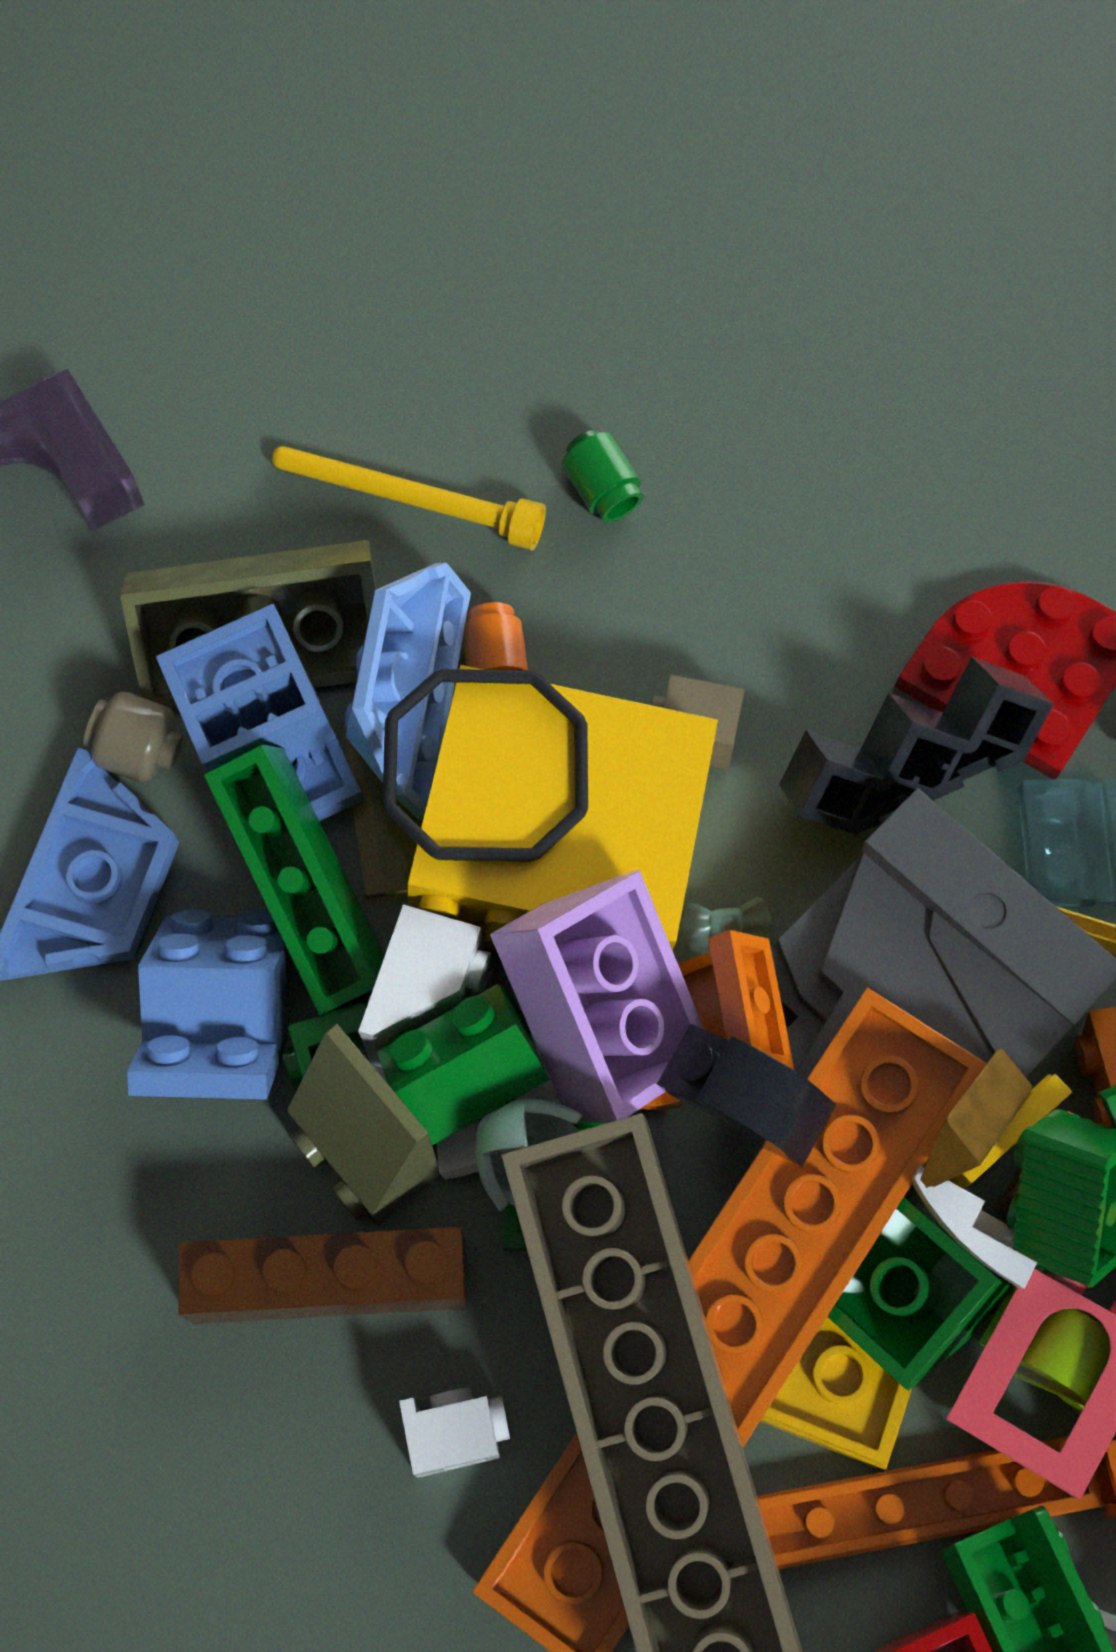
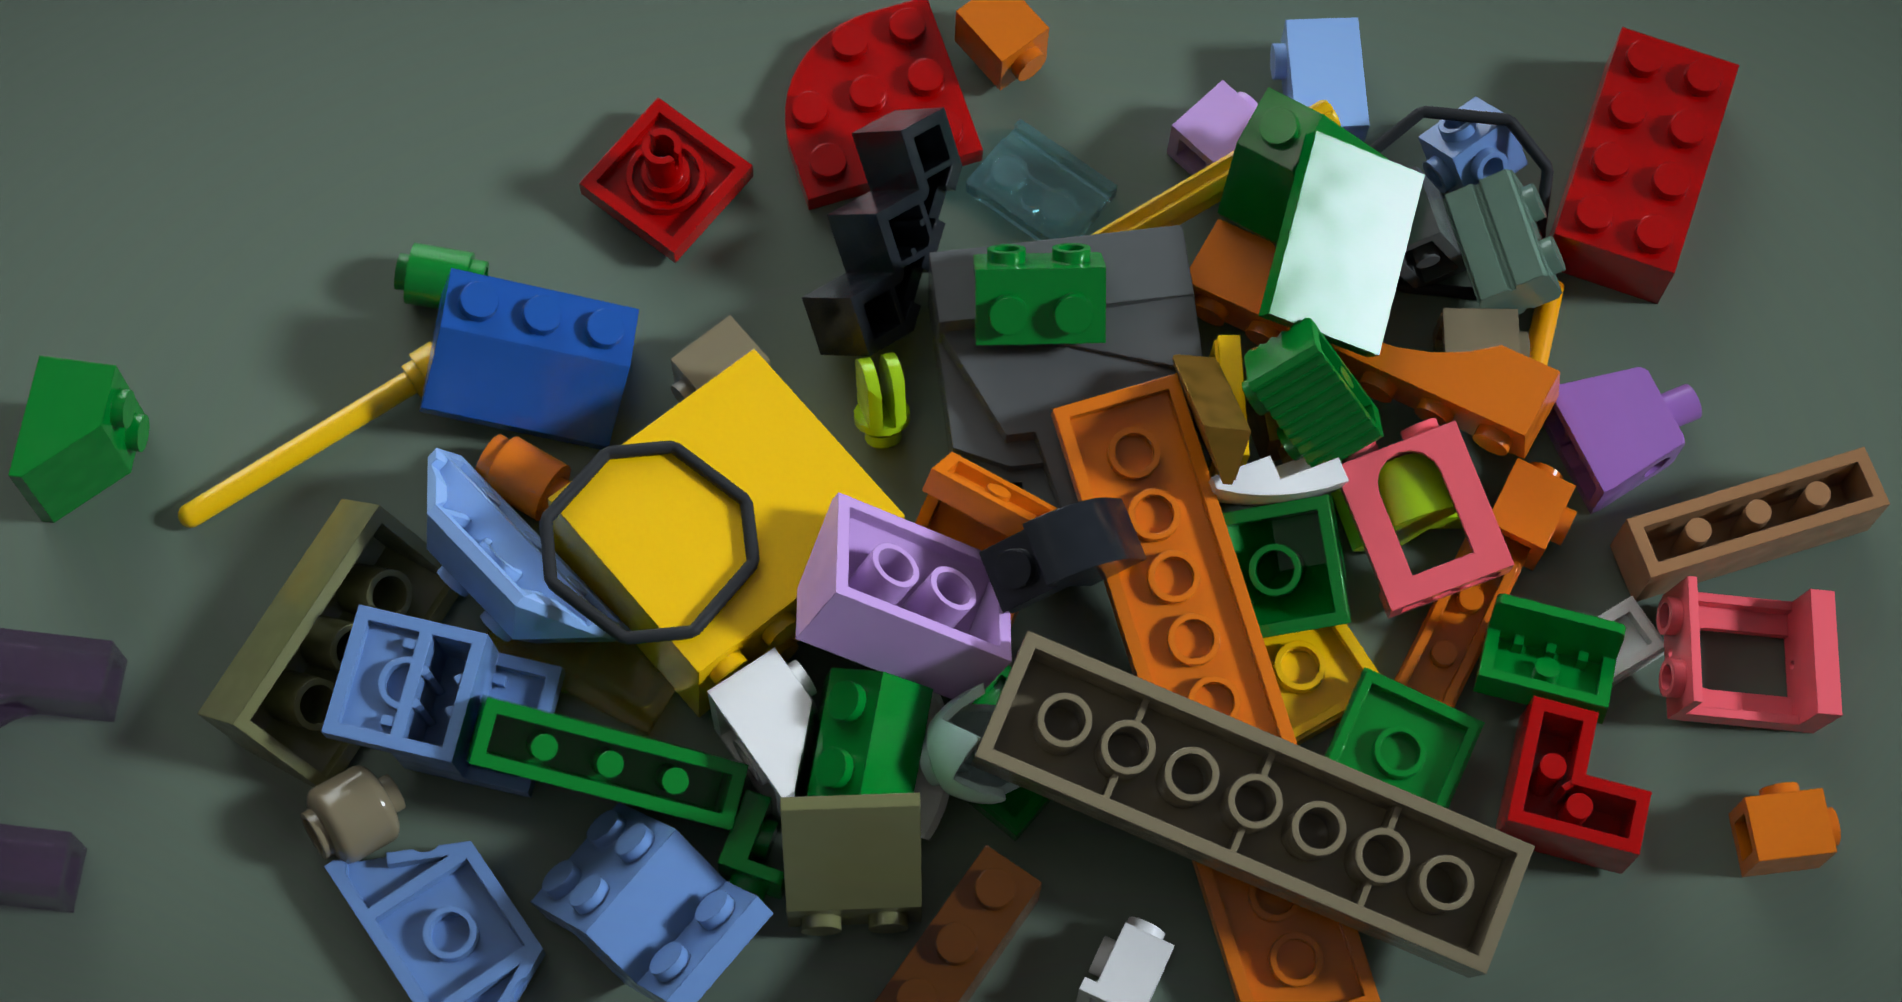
camera: 55 degrees left, 0 degrees up
(264, 331) = (75, 435): none -> green slope
(583, 577) = (529, 359): none -> blue slope
(702, 923) = (910, 468): sand green piece -> none
(765, 867) = (882, 406): none -> lime arm
(821, 565) = (666, 179): none -> red plate
(835, 1523) = (1404, 738): none -> green tile
(955, 899) = (1040, 295): none -> green bracket

